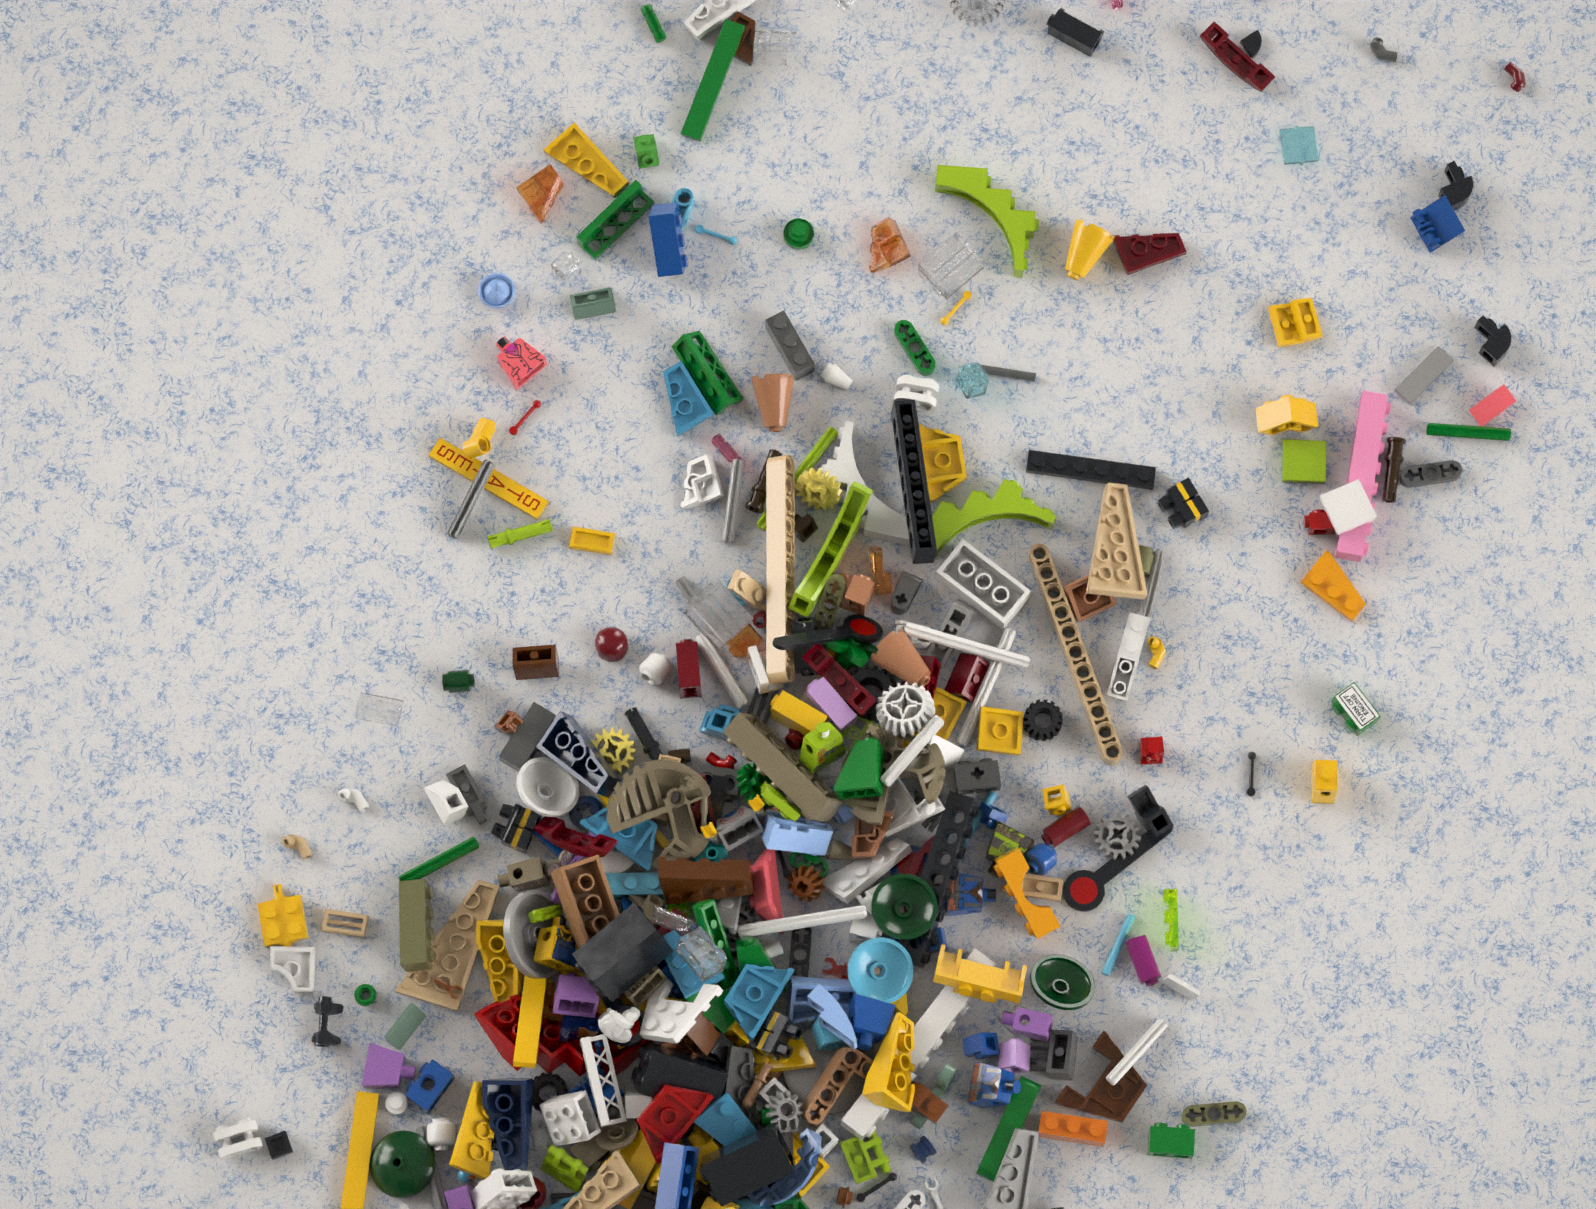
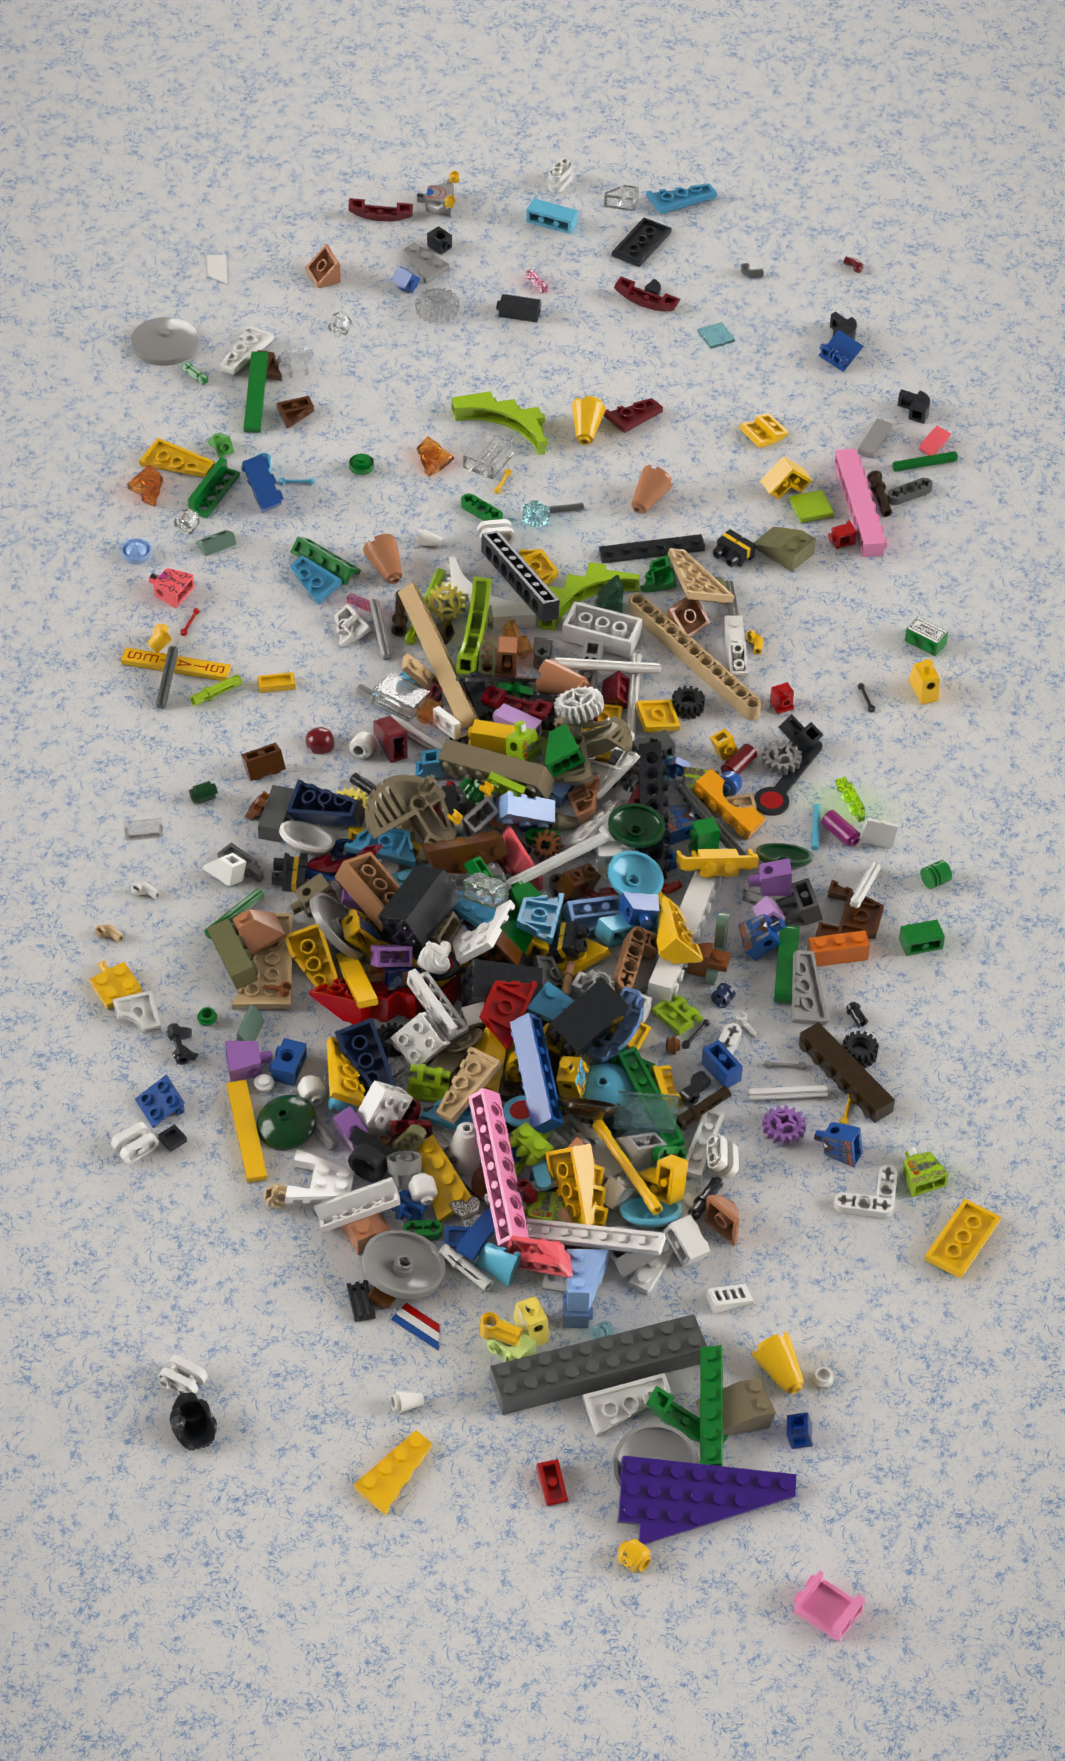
camera: 20 degrees left, 25 degrees down
(280, 1093) = (160, 1101): none -> blue hinge
(363, 926) = (172, 975): tan tile -> none
(454, 902) = (259, 929): none -> nougat slope
(545, 913) = (340, 907): lime axle -> none
(750, 121) = (295, 410): none -> reddish brown wing
(789, 345) = (379, 522): dark grey brick -> none
(819, 947) = (577, 880): none -> reddish brown brick
(832, 1015) = (612, 908): light blue slope -> none
(912, 750) = (597, 725): white axle -> none
(922, 980) = (672, 887): none -> red arm
(981, 931) = (704, 835): none -> green brick
(981, 1045) = (739, 911): blue brick -> none
(1000, 911) = (704, 813): none -> dark grey axle
(1009, 539) = (611, 595): none -> clear green slope
(1082, 516) = (660, 576): none -> green slope
(1118, 384) = (650, 488): none -> nougat cone
(1223, 1060) = (936, 874): none -> green piece
(1229, 1107) = (951, 907): olive beam -> none
(1246, 516) = (786, 546): none -> olive slope
(1333, 587) = (871, 572): light orange wing -> none
(1348, 507) = (859, 515): white tile -> none

